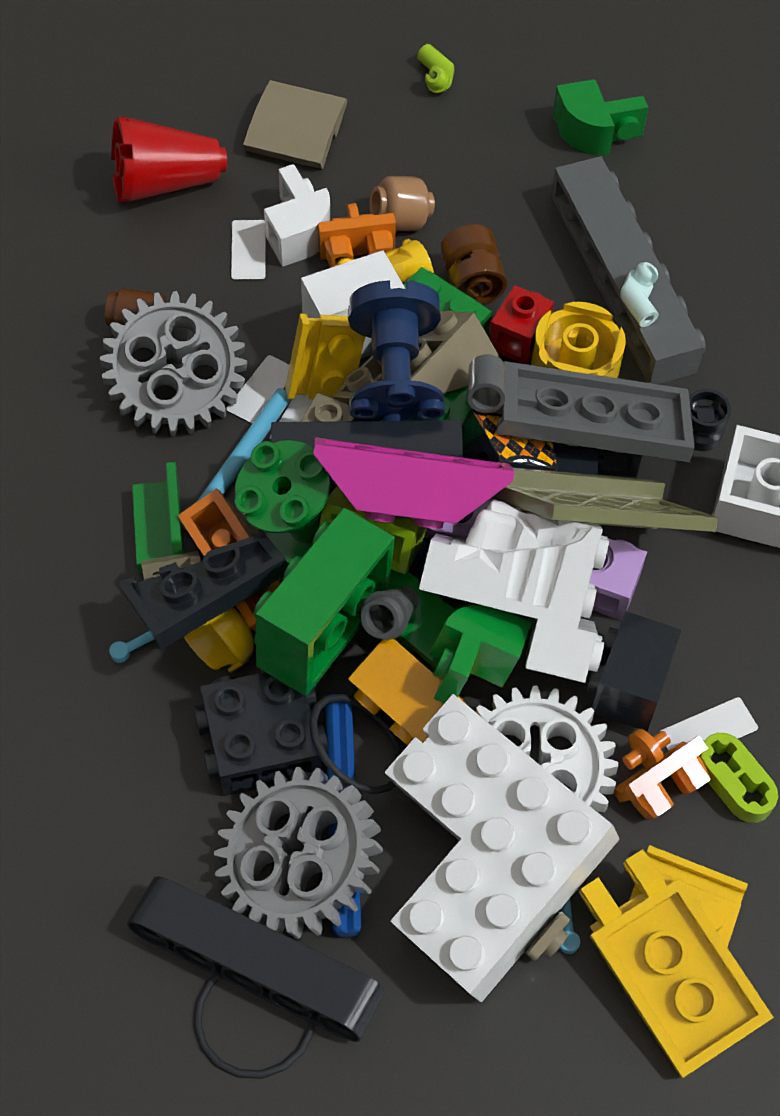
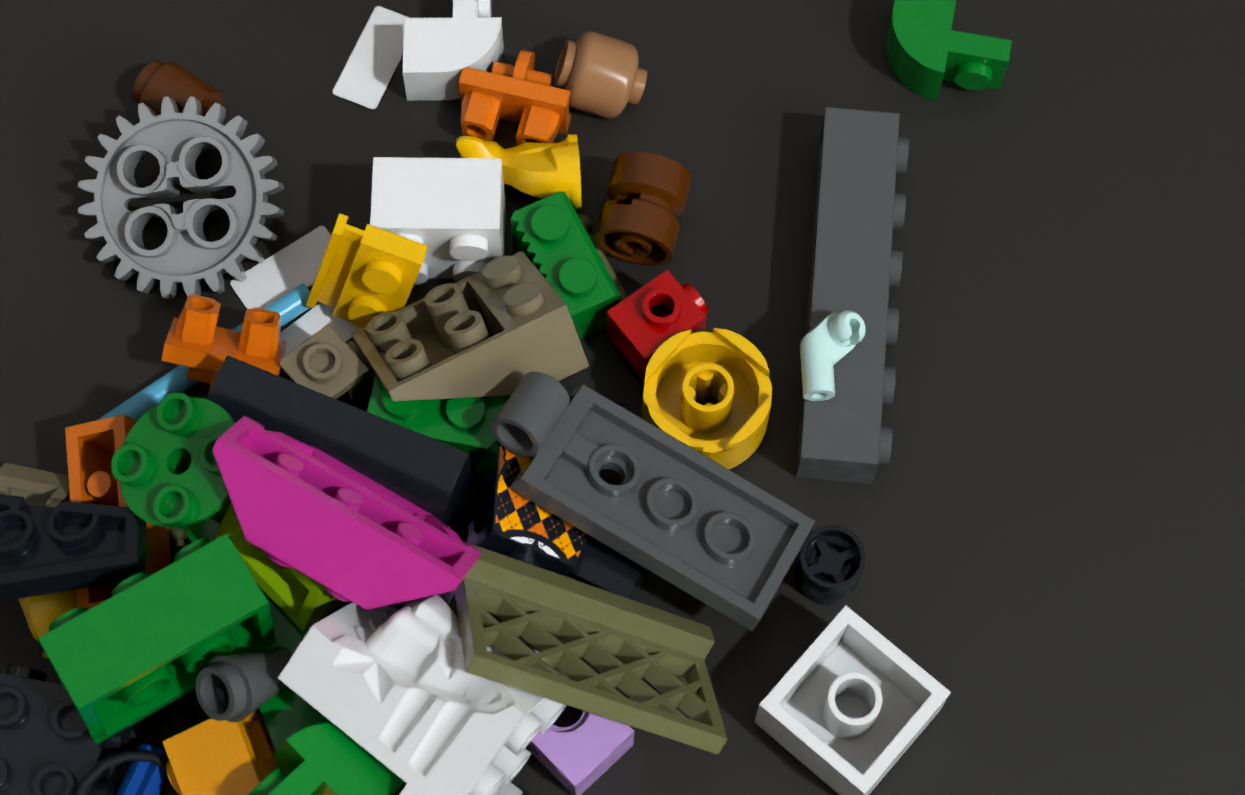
camera: 25 degrees right, 10 degrees up
(156, 518) = (67, 395): green panel -> none
(233, 435) = (203, 346): none -> orange hips
(395, 323) = (428, 311): dark blue piece -> none

